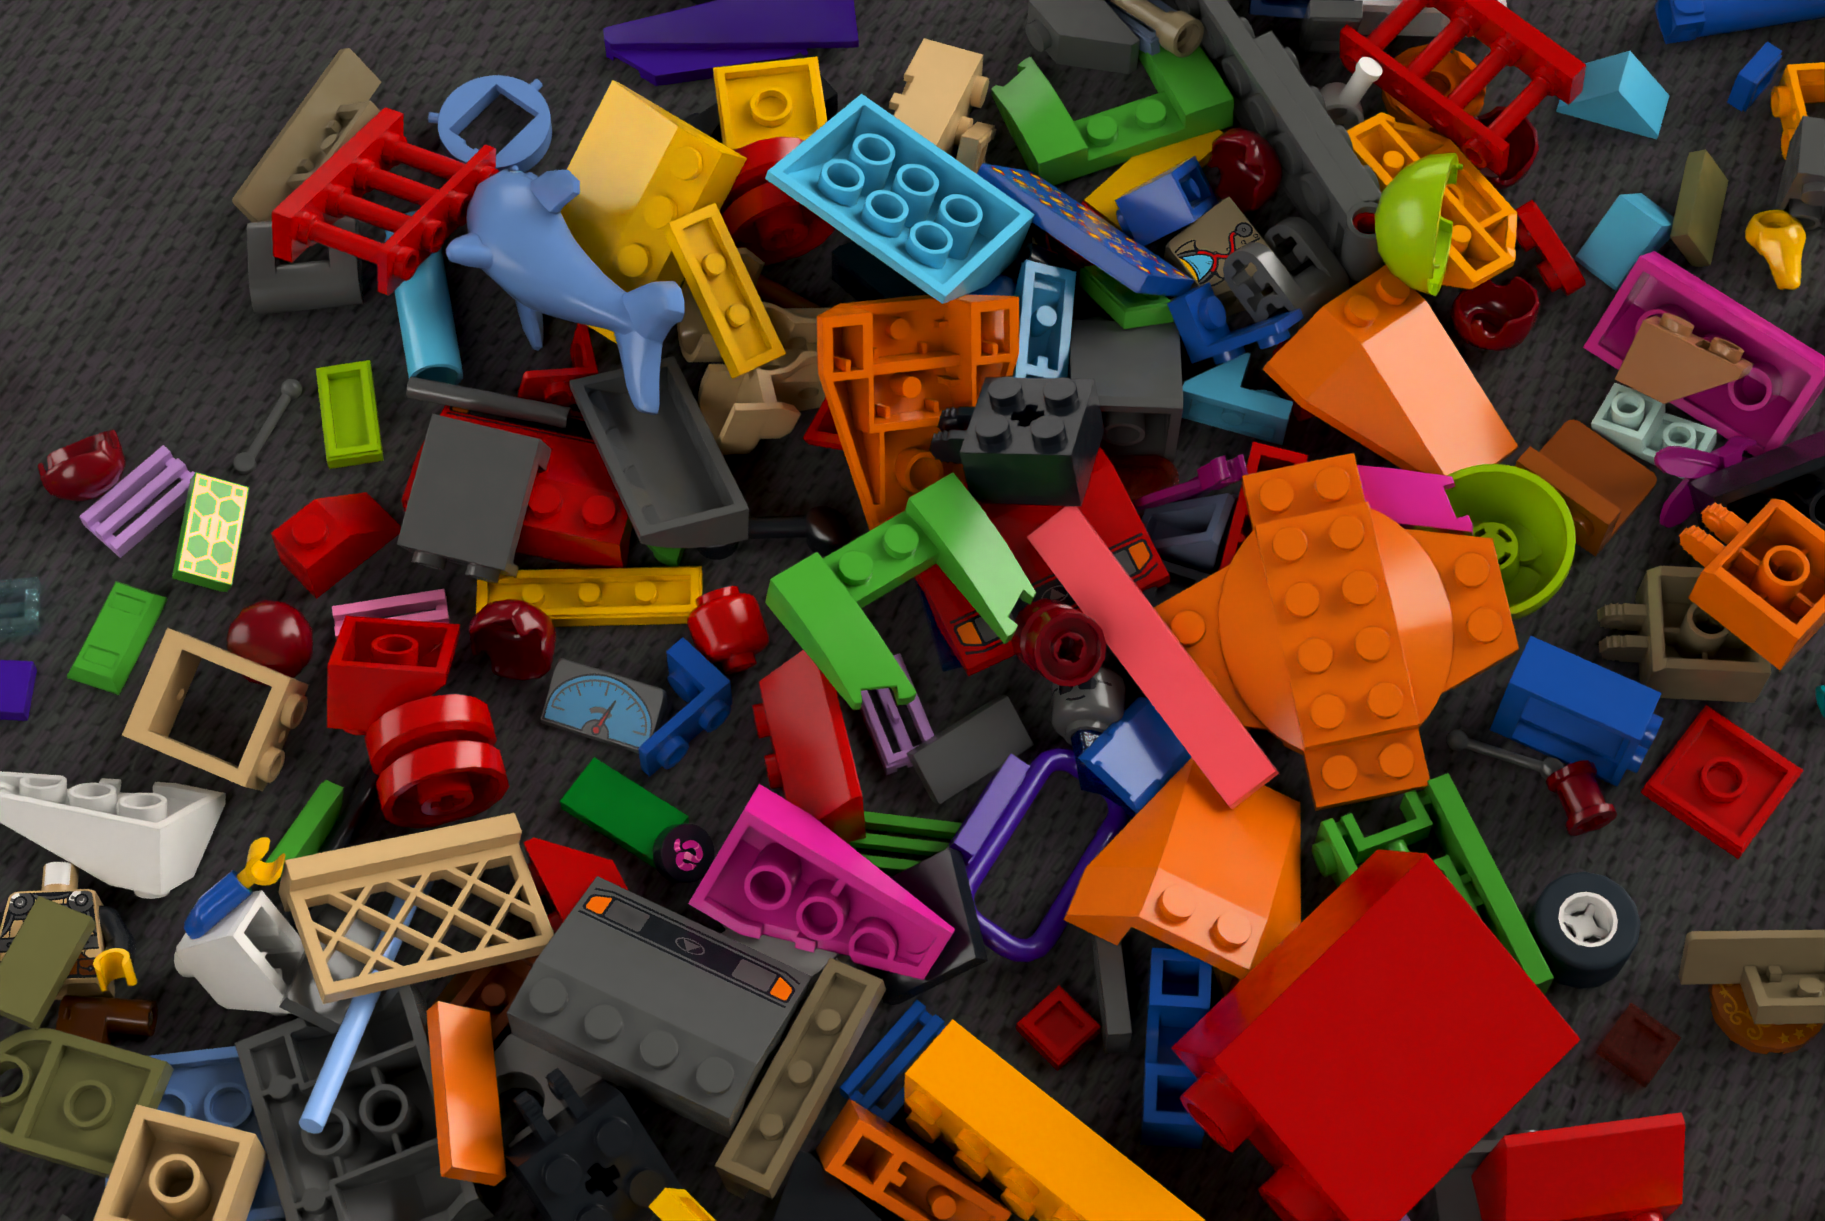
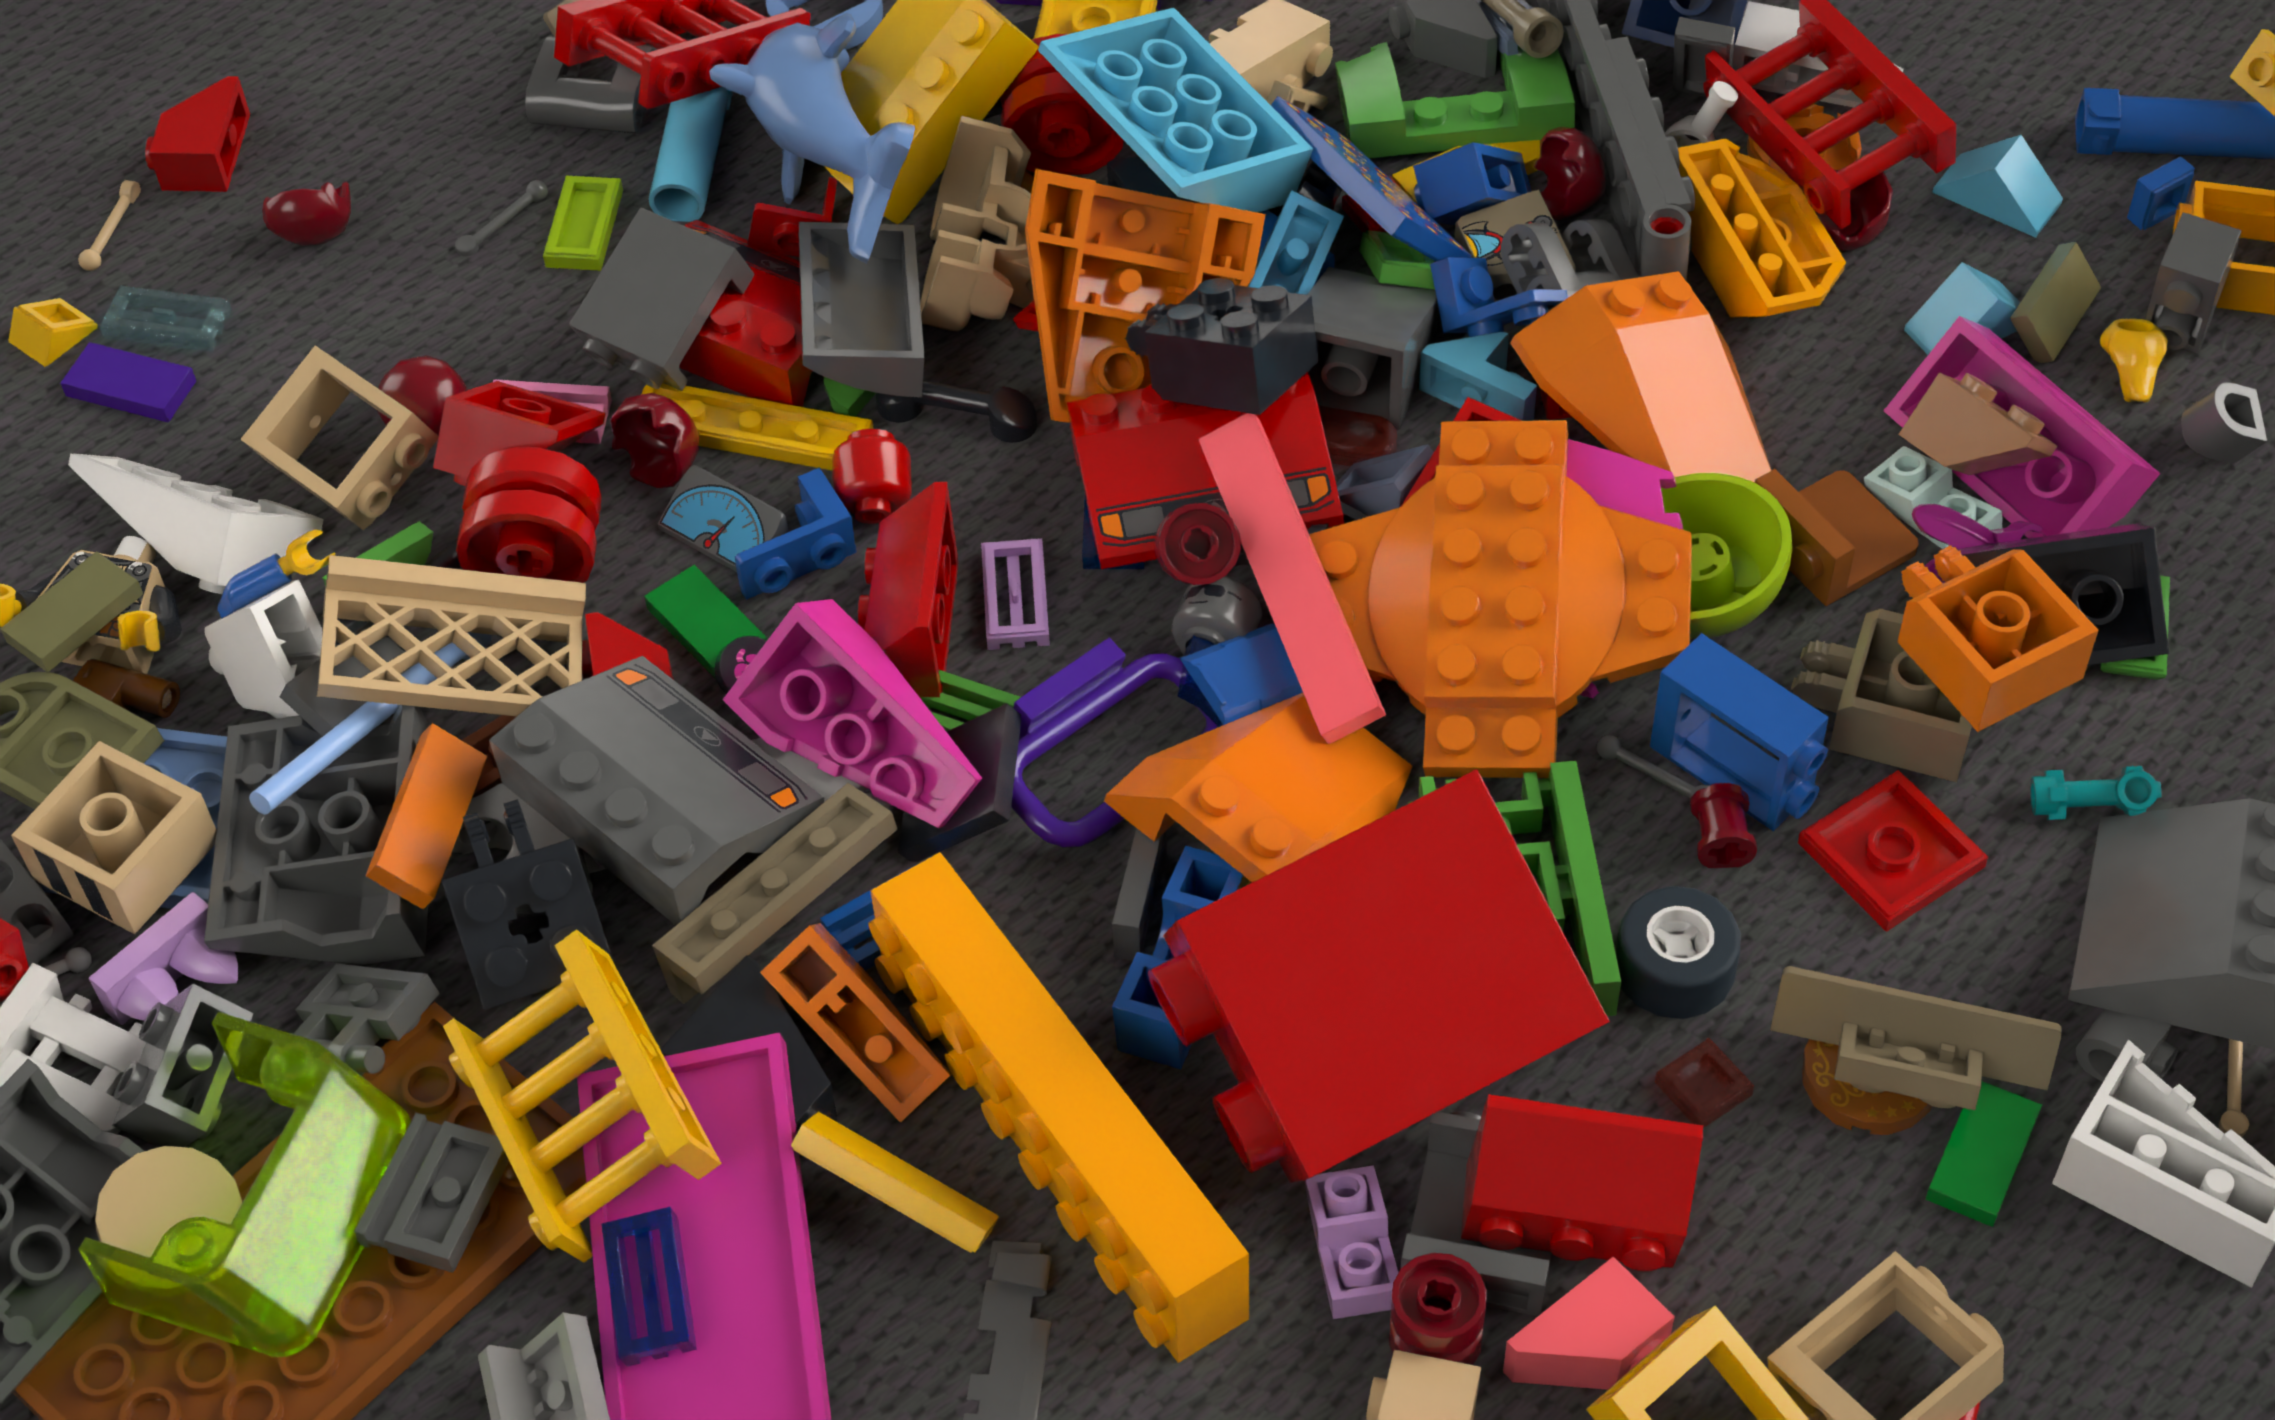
camera: 20 degrees right, 10 degrees down
(117, 638) = (270, 368): bright green tile -> none
(126, 489) = (354, 257): lavender tile -> none
(210, 532) = (405, 293): tile -> none
(332, 538) = (514, 319): red slope -> none
(489, 402) = (745, 242): dark grey bar -> none
(723, 290) = (971, 157): yellow plate -> none
(824, 596) = (1108, 406): bright green wedge -> none
(969, 749) = (1059, 638): dark grey tile -> none
(1058, 1028) = (1072, 919): red tile -> none
(1210, 477) = (1417, 426): magenta piece -> none
(1409, 223) = (1706, 225): lime cylinder -> none
(1508, 307) = (1790, 357): dark red hair -> none
(1558, 266) = (1877, 326): red plate -> none

